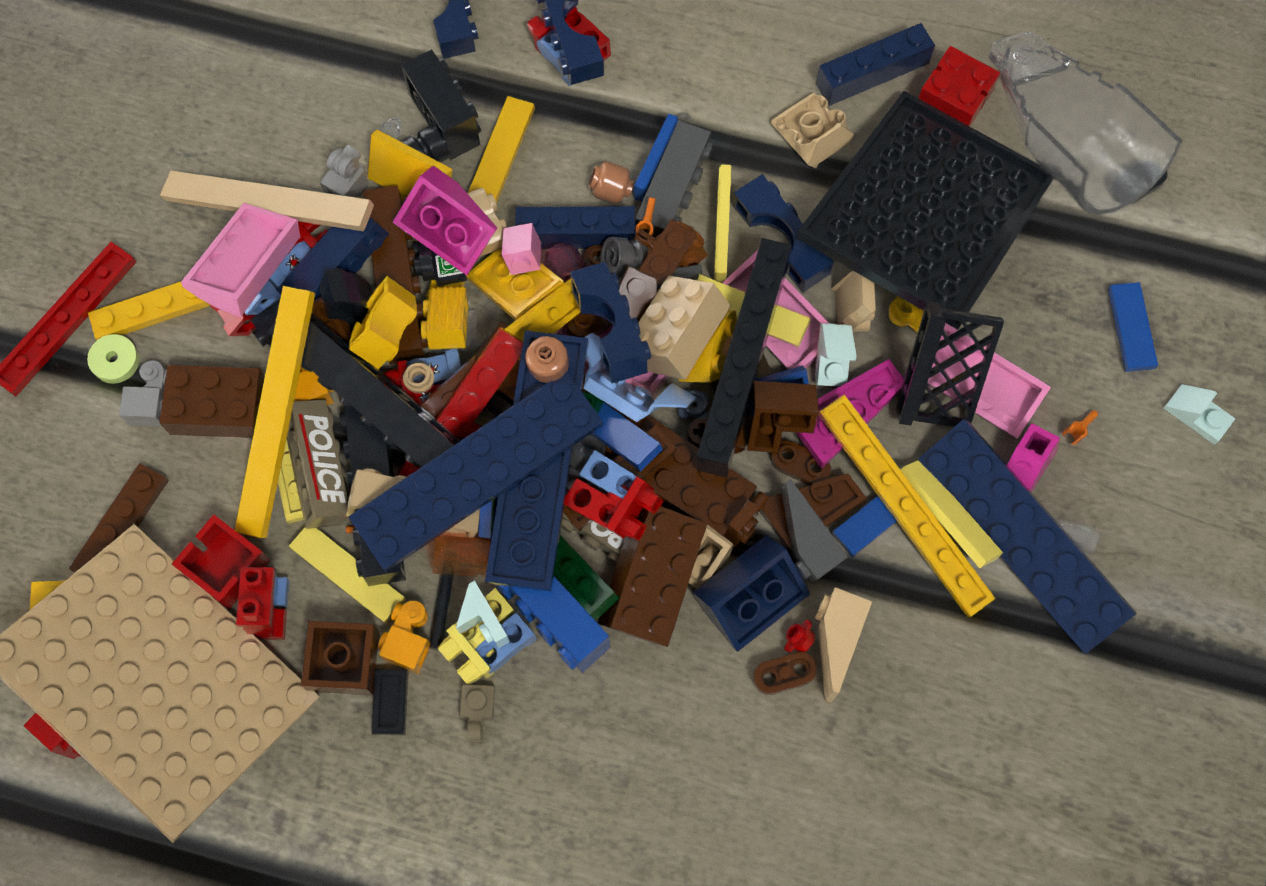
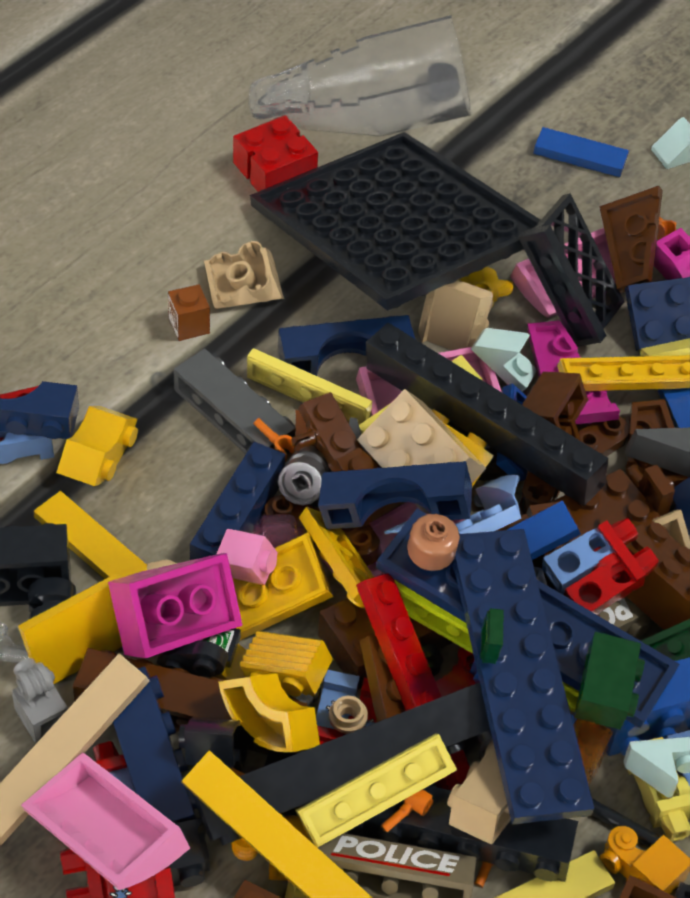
camera: 70 degrees left, 20 degrees down
(349, 419) = (376, 790): none -> light yellow tile
(365, 453) = (419, 802): none -> orange hand
(474, 434) = (492, 636): none -> dark green tile
(495, 538) = (609, 680): none -> dark green brick
(584, 106) = (97, 446): none -> yellow brick
(610, 182) = (202, 460): nougat head -> none
(654, 158) = (198, 411): blue tile -> none
(749, 105) = (189, 312): none -> dark orange brick
(875, 64) = (207, 202): dark blue brick -> none
(1028, 401) = (632, 235): none -> reddish brown wing

